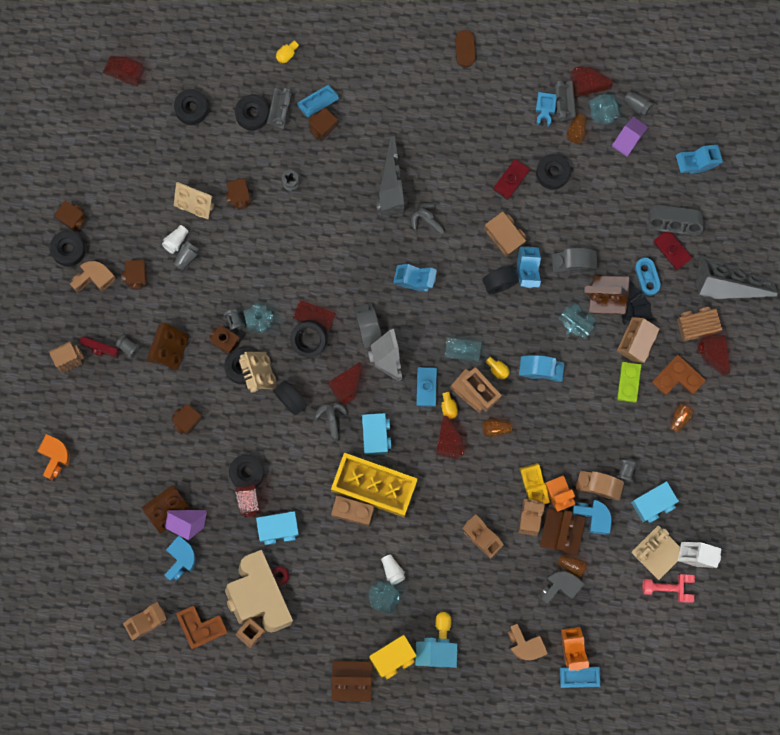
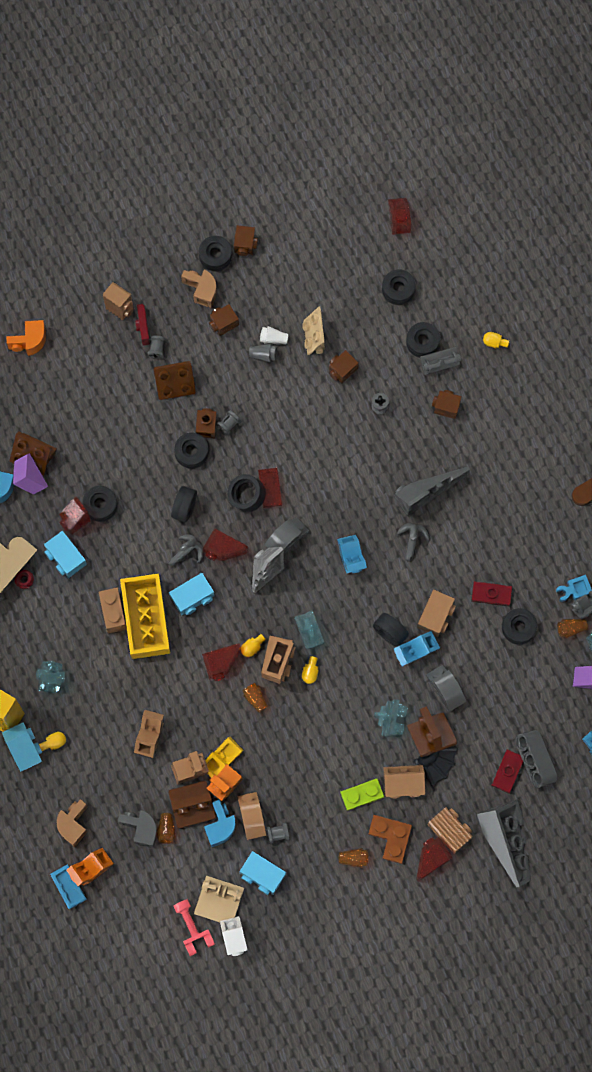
camera: 65 degrees right, 5 degrees down
(185, 419) = (118, 428): reddish brown brick -> none
(253, 323) = (240, 440): clear light blue brick -> none
(261, 373) = (194, 465): tan hinge -> none
(318, 101) = (465, 389): dark azure plate -> none
(392, 569) = (78, 673): white cone -> none
(426, 387) = (259, 617): dark azure plate -> none
(541, 367) = (331, 709): dark azure brick -> none
(647, 277) = (469, 761): dark azure plate -> none

